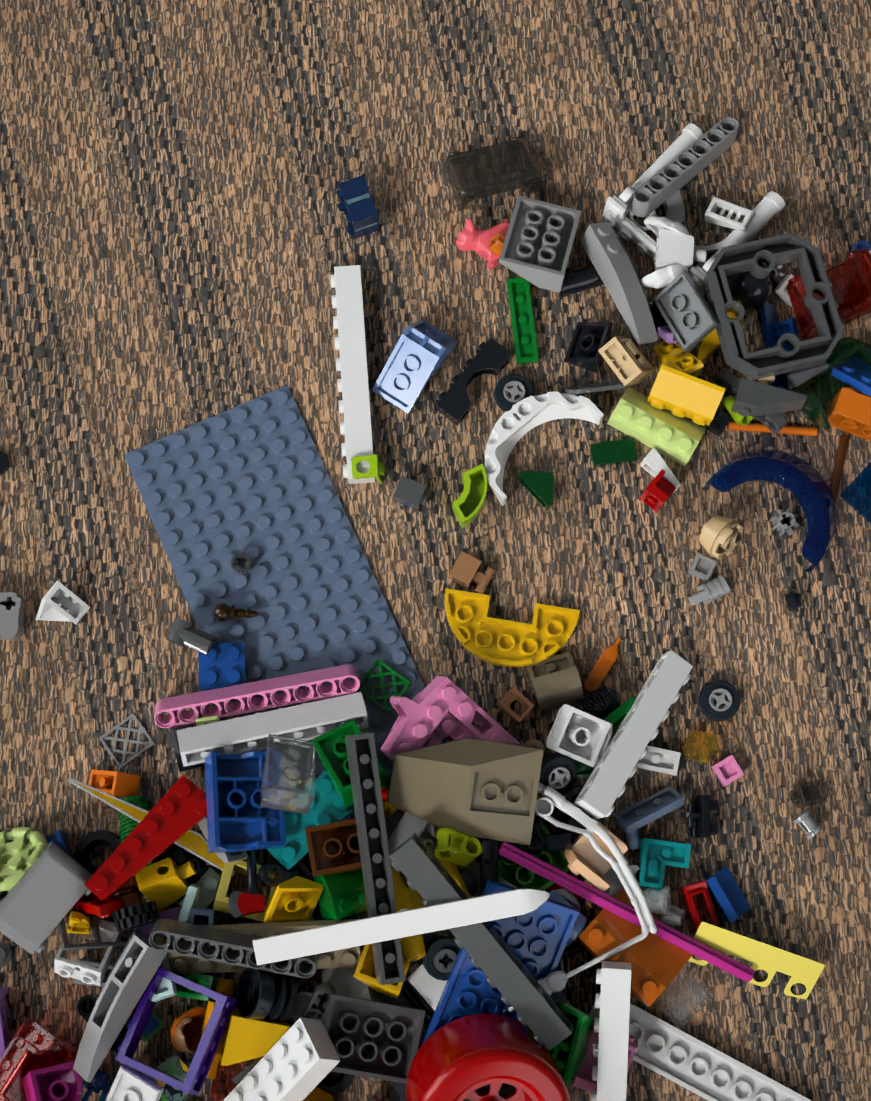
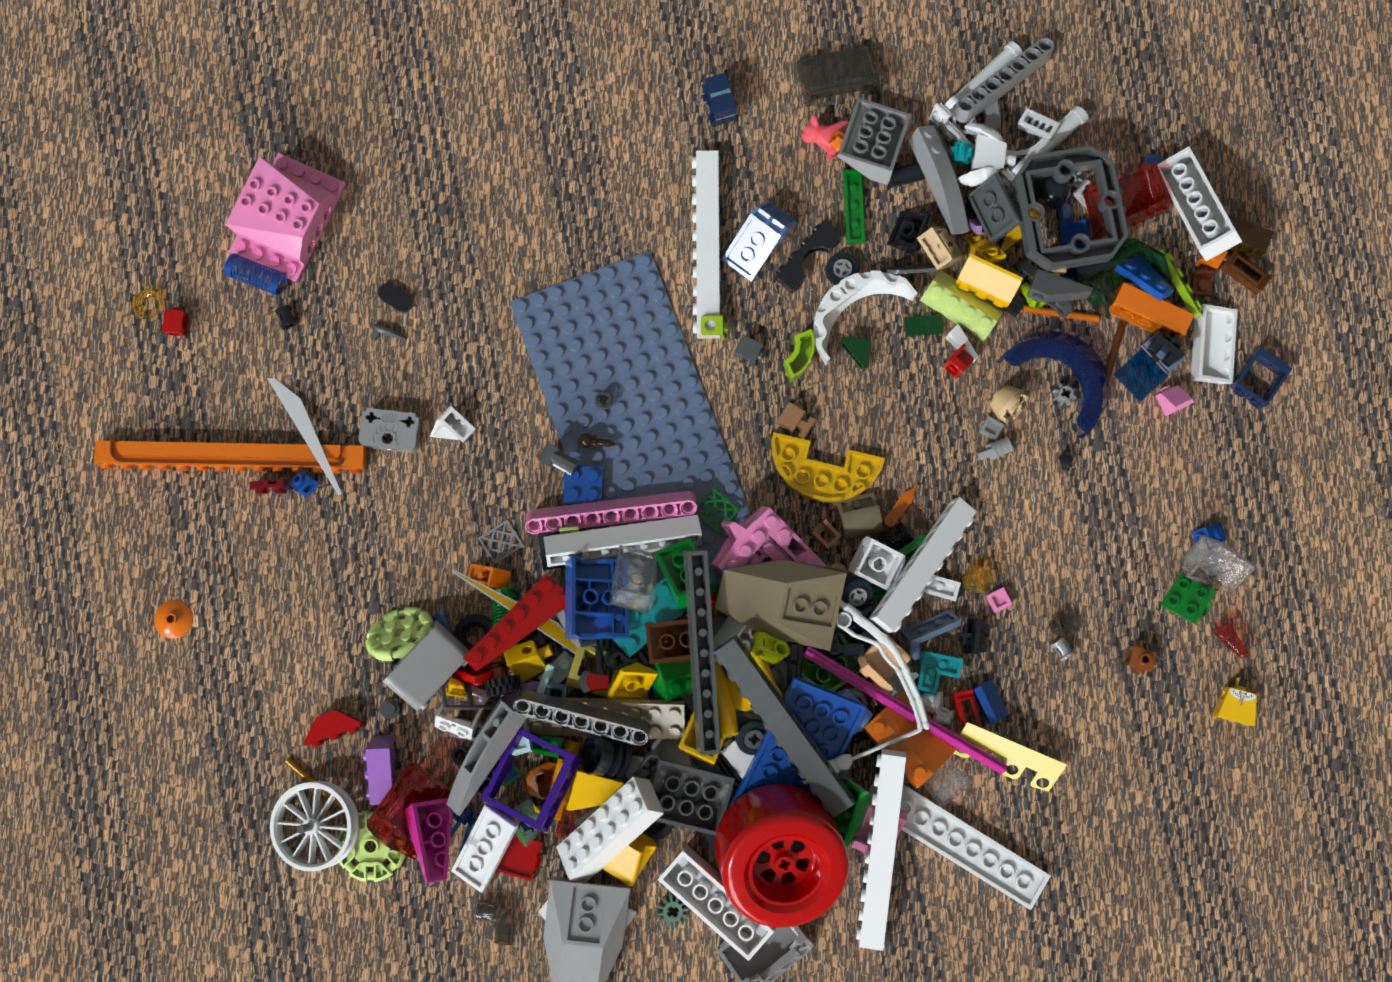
camera: 10 degrees right, 5 degrees up
(397, 925) = (718, 708): white piece -> none
(642, 251) = (961, 152): none -> teal gear
(724, 694) = (1000, 535): black wheel -> none

